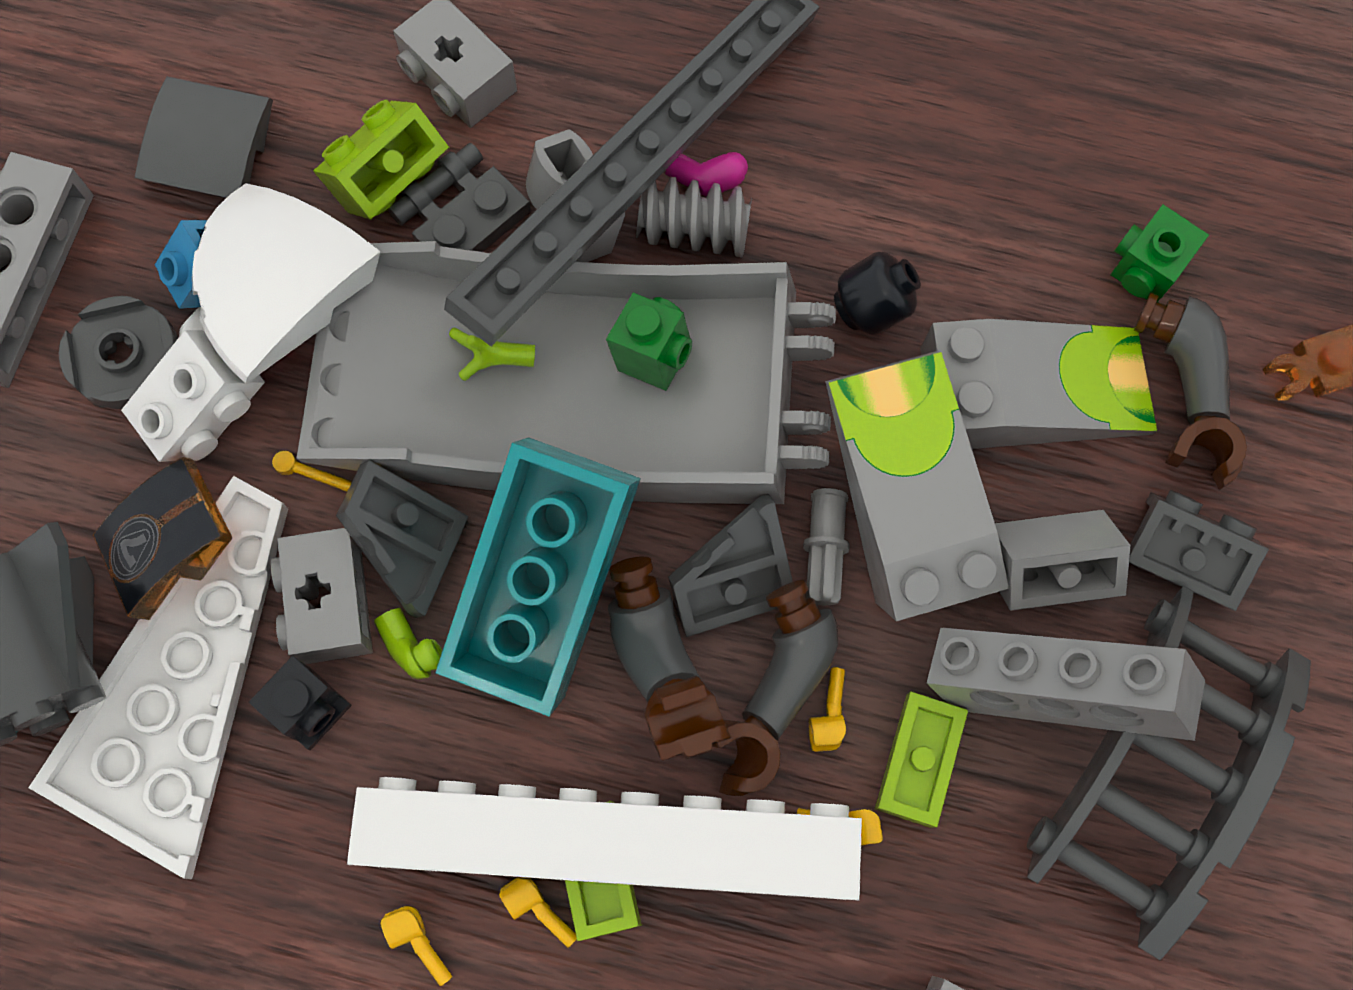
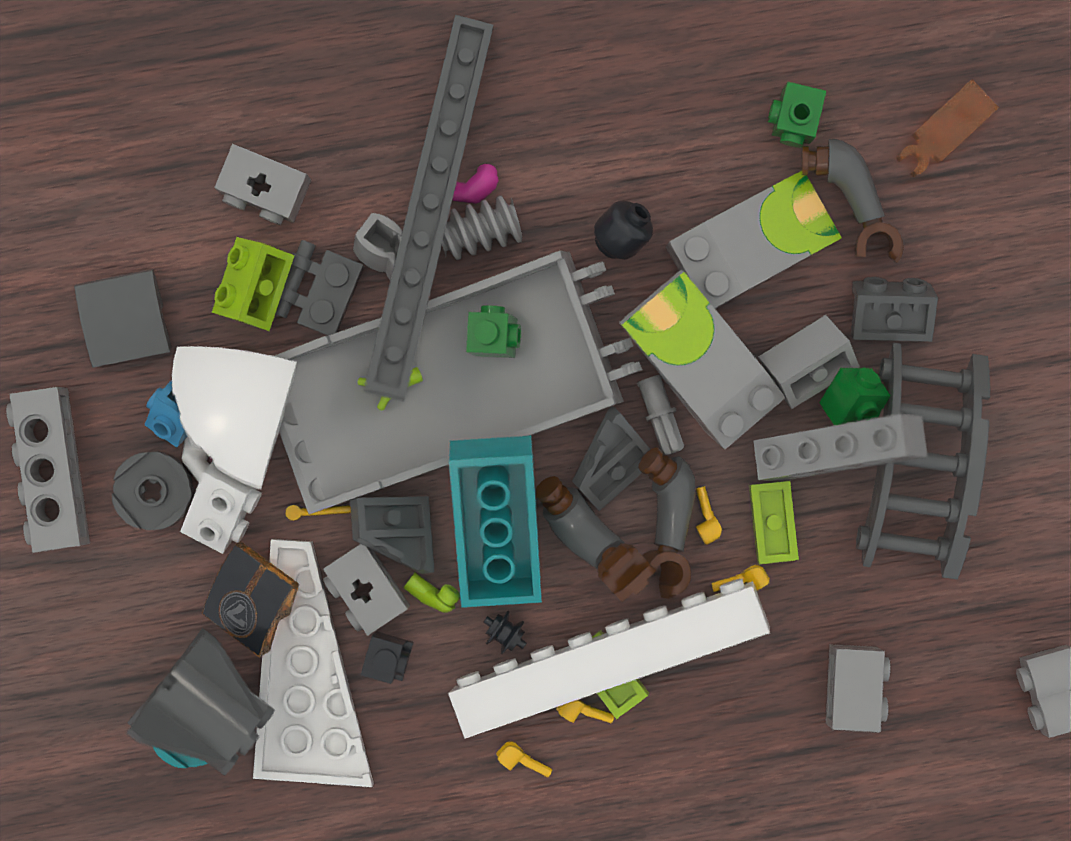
camera: 20 degrees left, 15 degrees up
(480, 742) = (505, 632): none -> black wheel
(1106, 616) = (854, 396): none -> green brick

